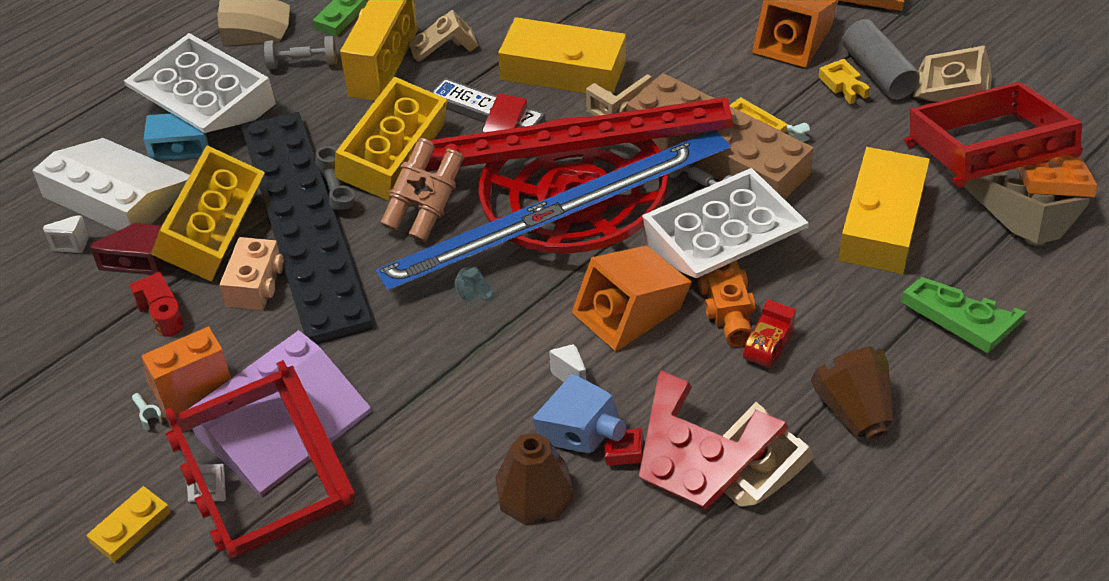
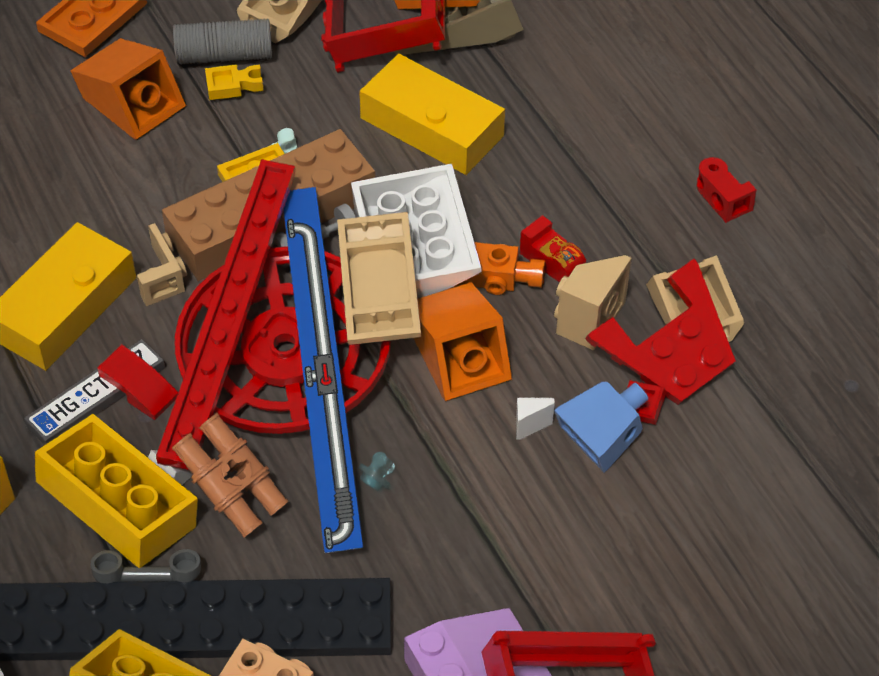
camera: 75 degrees left, 5 degrees up
(533, 481) = (664, 483): reddish brown cone -> none
(643, 207) = (378, 278): none -> tan slope
(715, 370) = (591, 297): none -> tan slope
(858, 391) = (651, 207): reddish brown cone -> none
(924, 451) = (723, 190): none -> red leg
(969, 319) = (579, 110): bright green wing -> none

